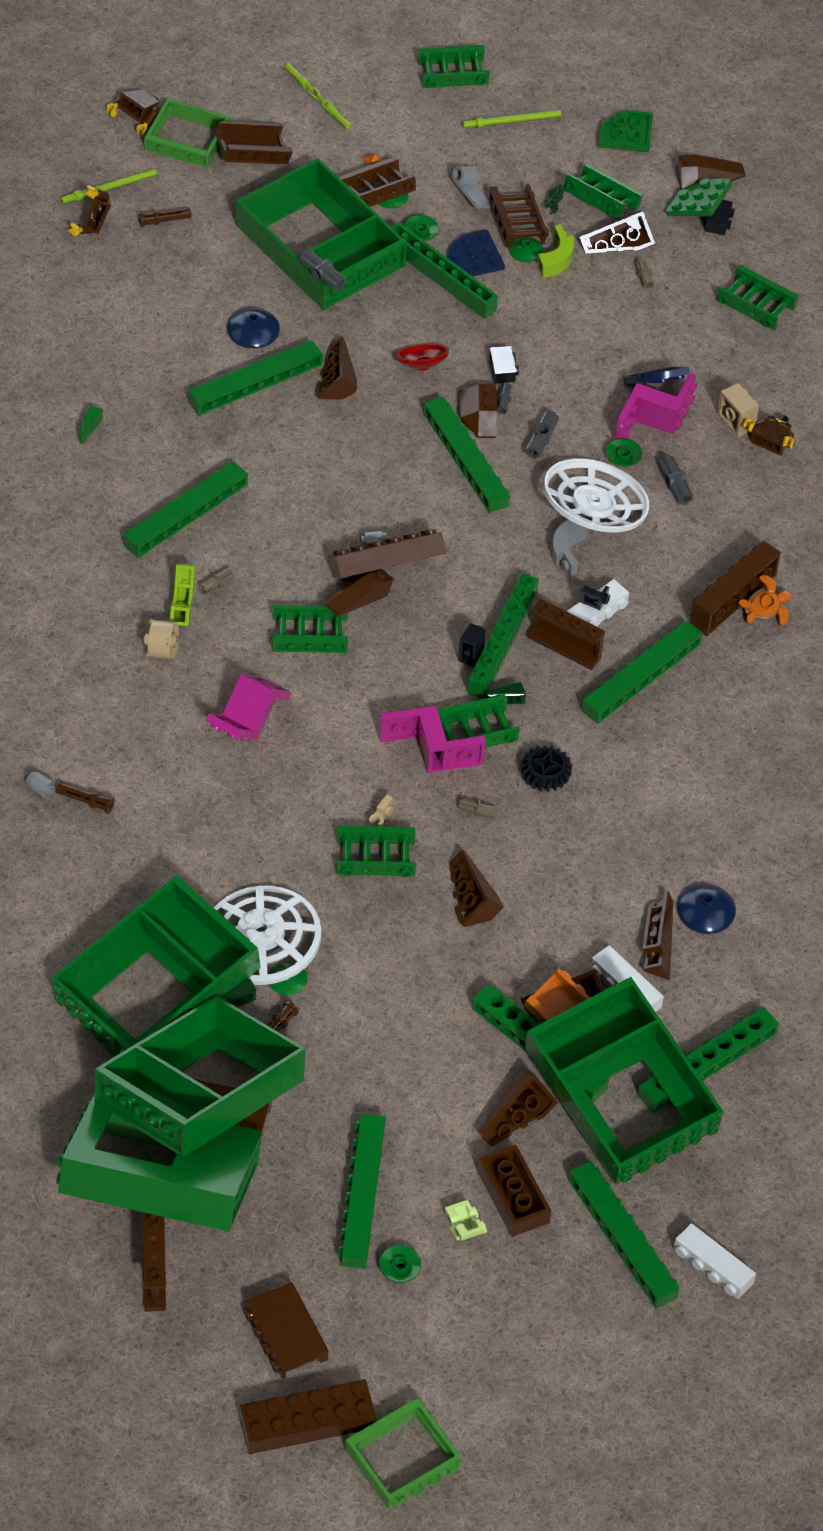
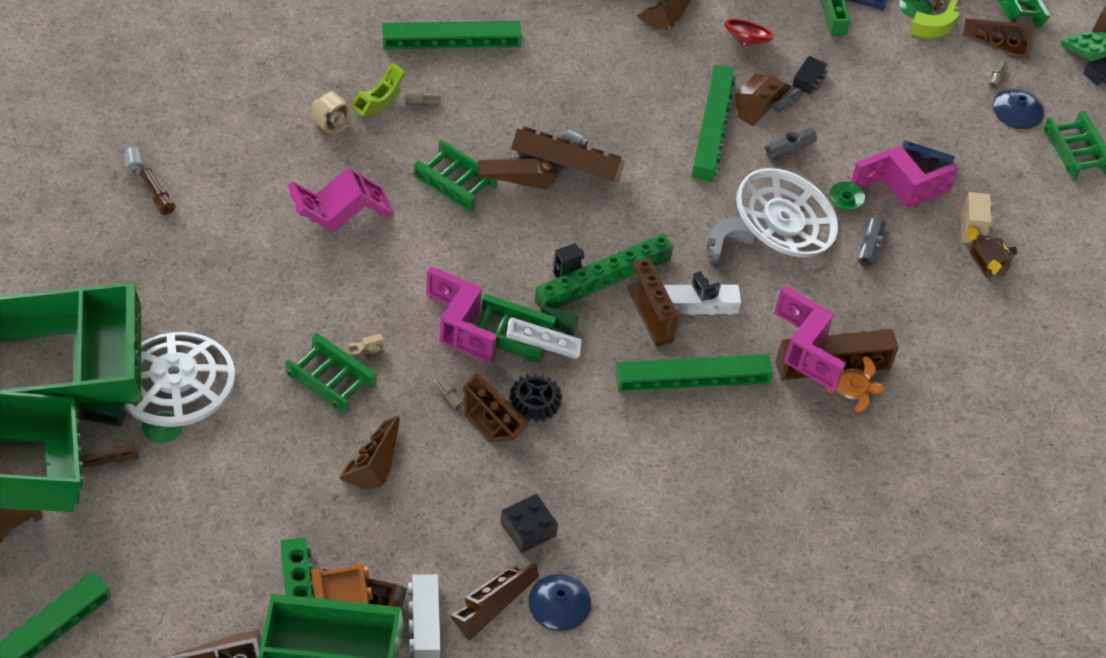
camera: 35 degrees right, 0 degrees up
(511, 716) = (543, 338): none -> white plate
(527, 800) = (491, 411): none -> reddish brown wedge
(633, 865) = (529, 523): none -> black brick
(683, 293) = (1018, 108): none -> dark blue dish
(715, 573) = (803, 348): none -> dark pink bracket

